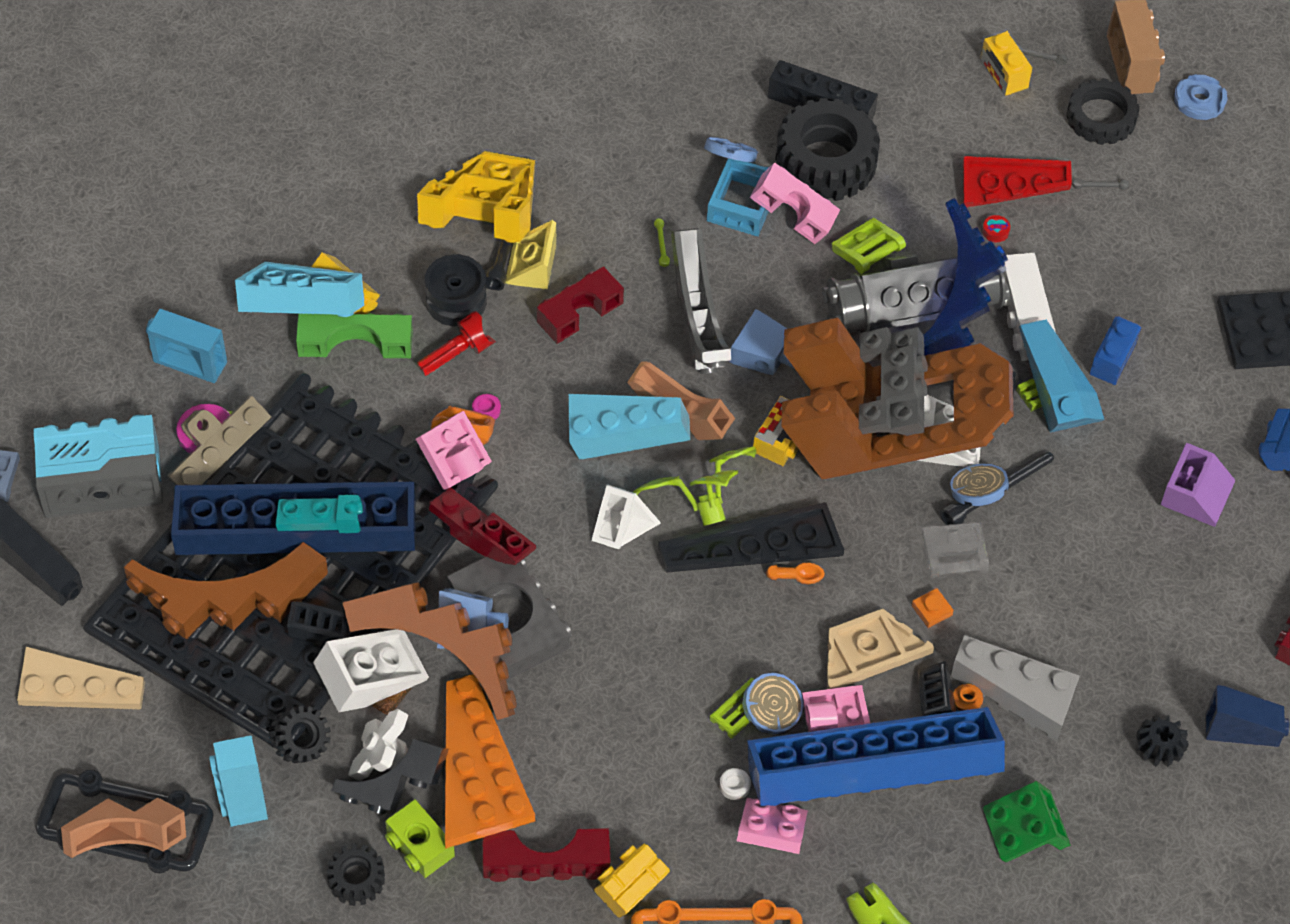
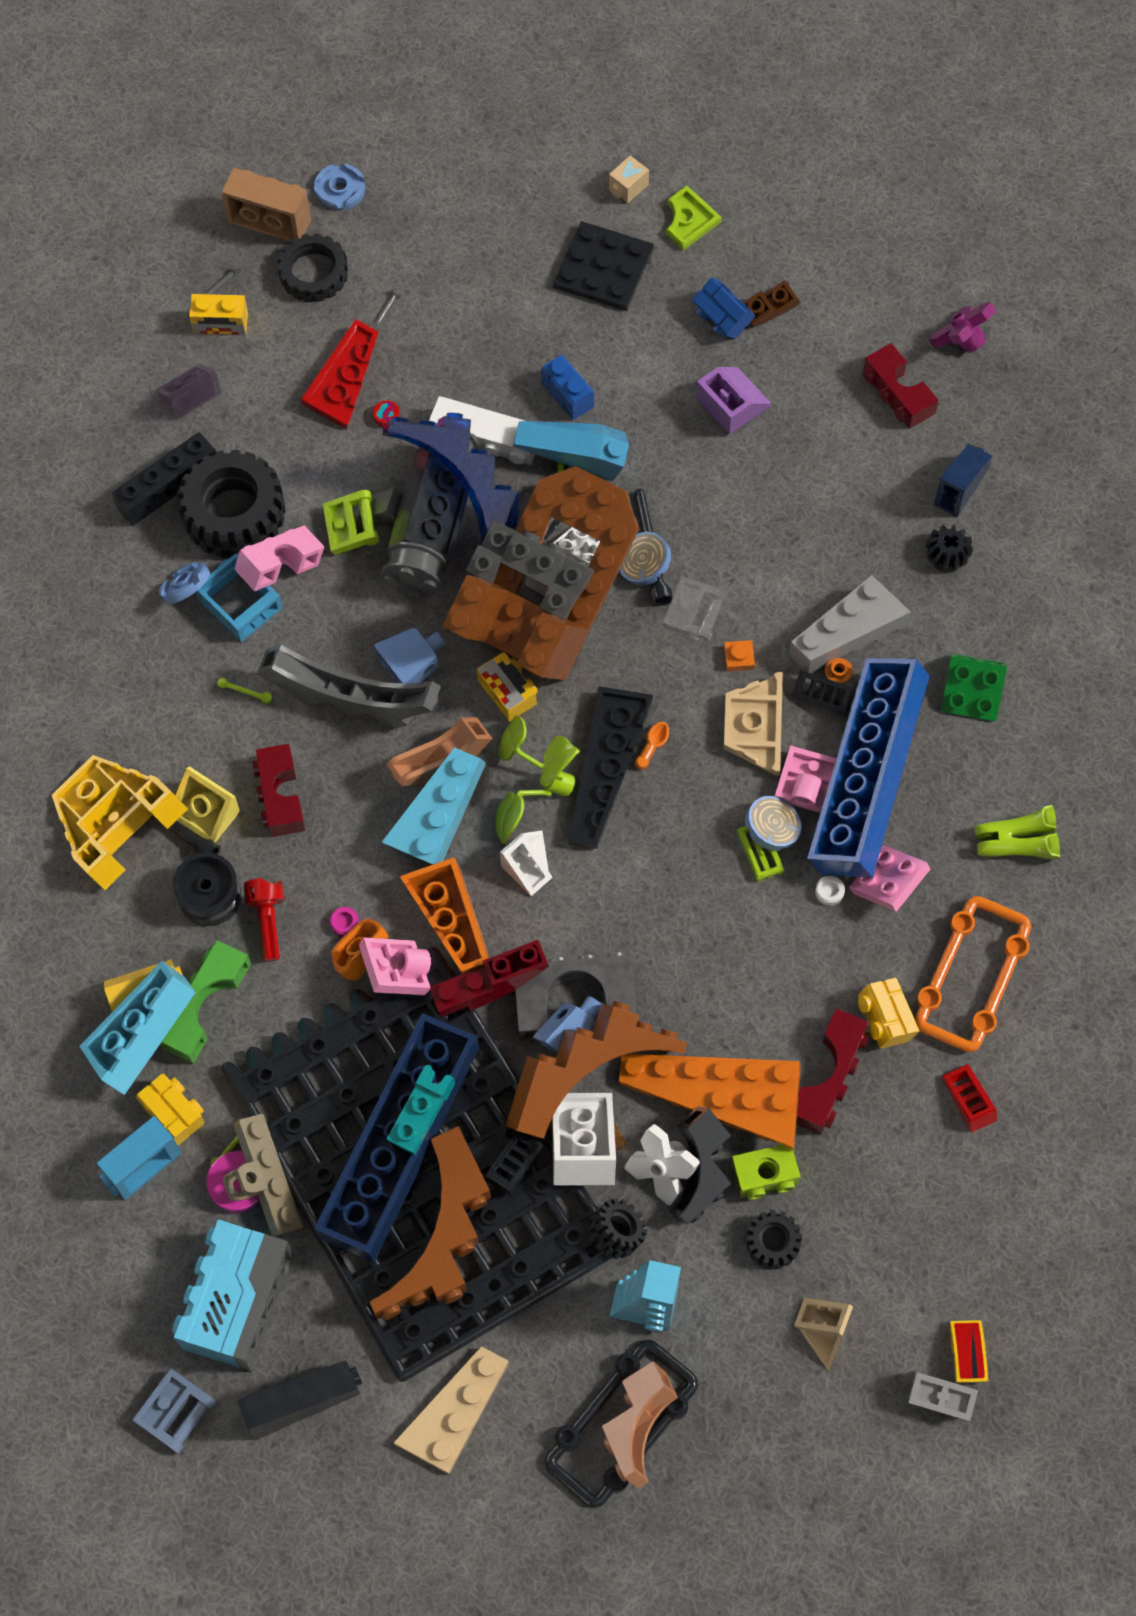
camera: 60 degrees left, 10 degrees up
(246, 353) = (166, 1102): none -> yellow brick
(534, 477) = (449, 910): none -> orange wedge
(918, 77) = (189, 390): none -> clear purple slope

